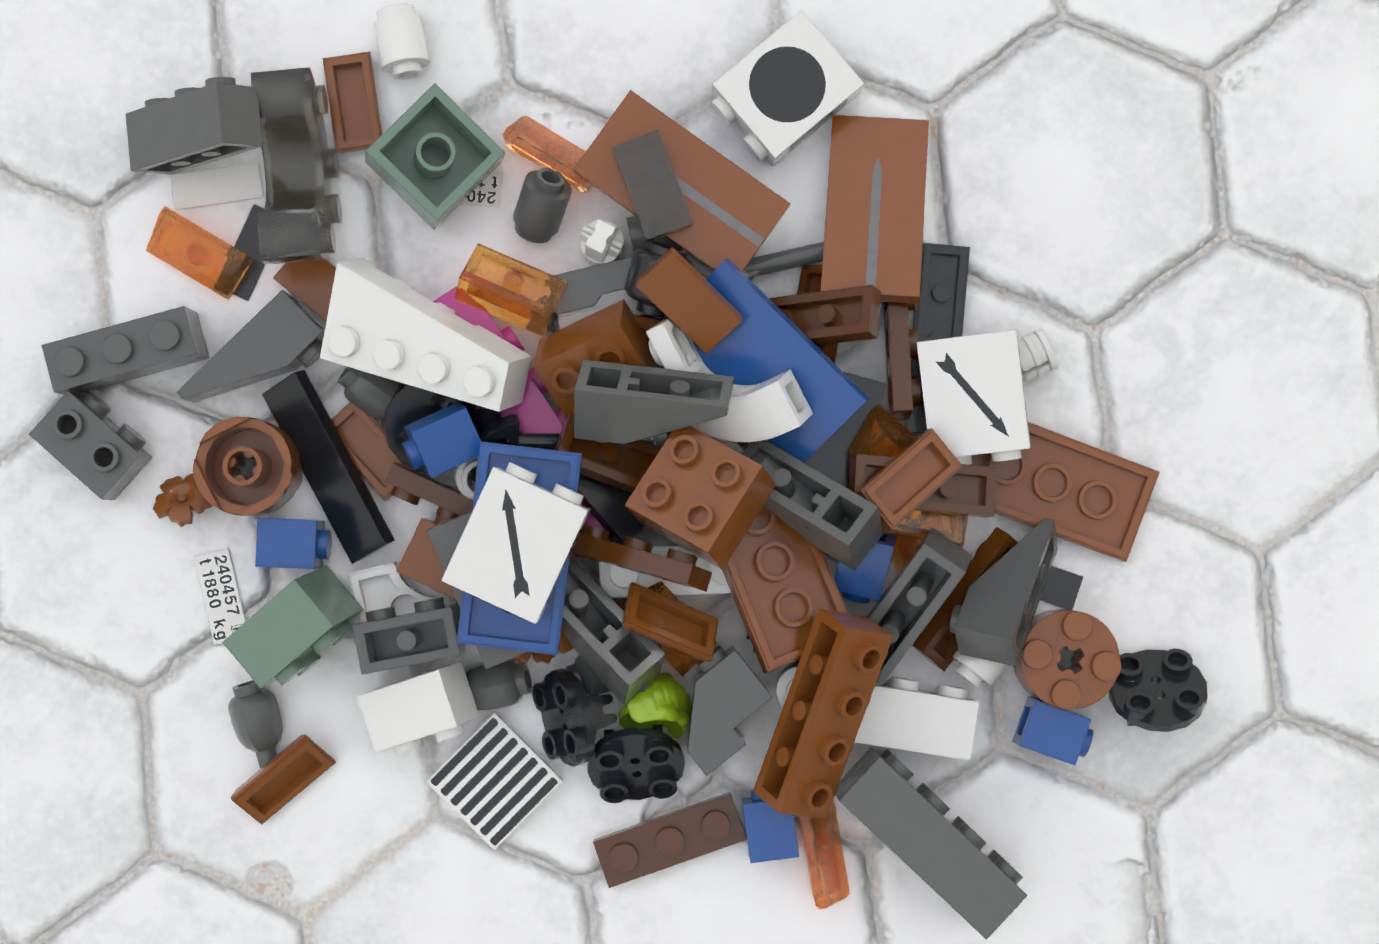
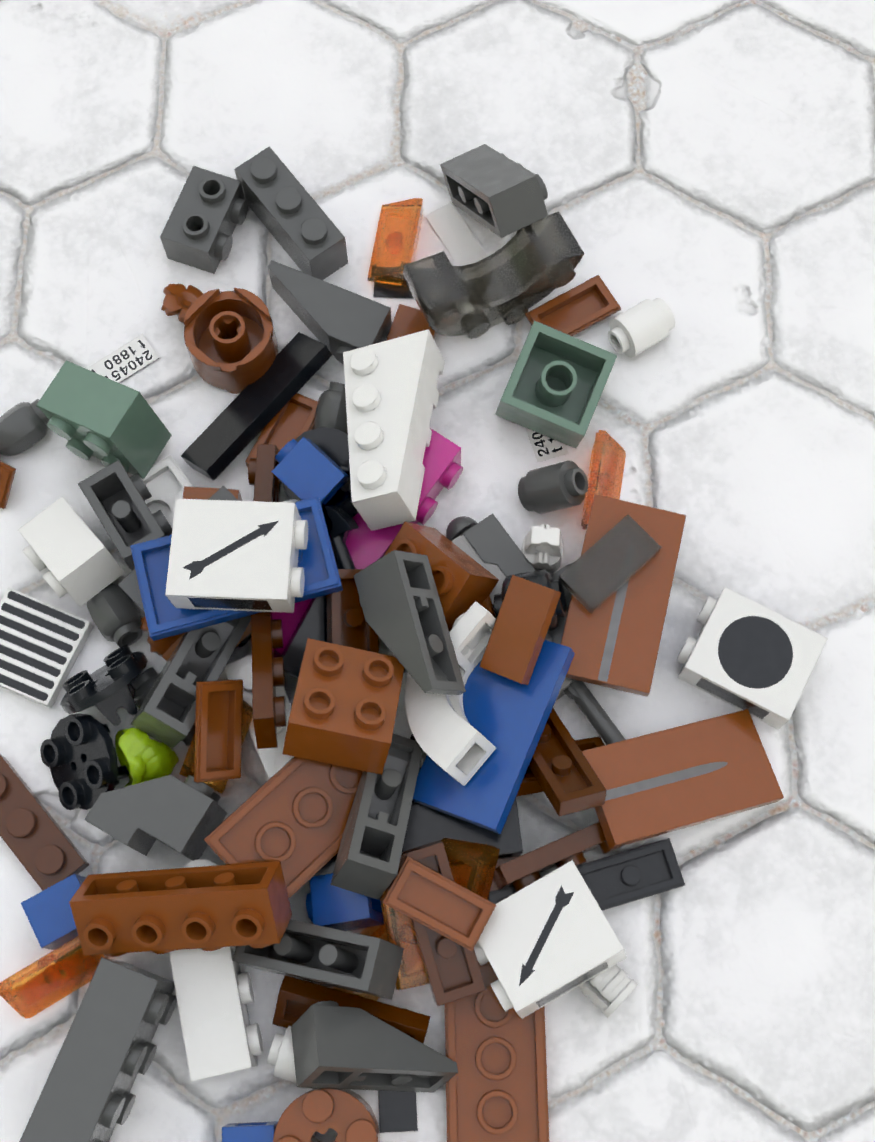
camera: 75 degrees right, 15 degrees down
(292, 543) = (179, 399): blue brick -> none
(510, 289) = (467, 485): clear orange slope -> none

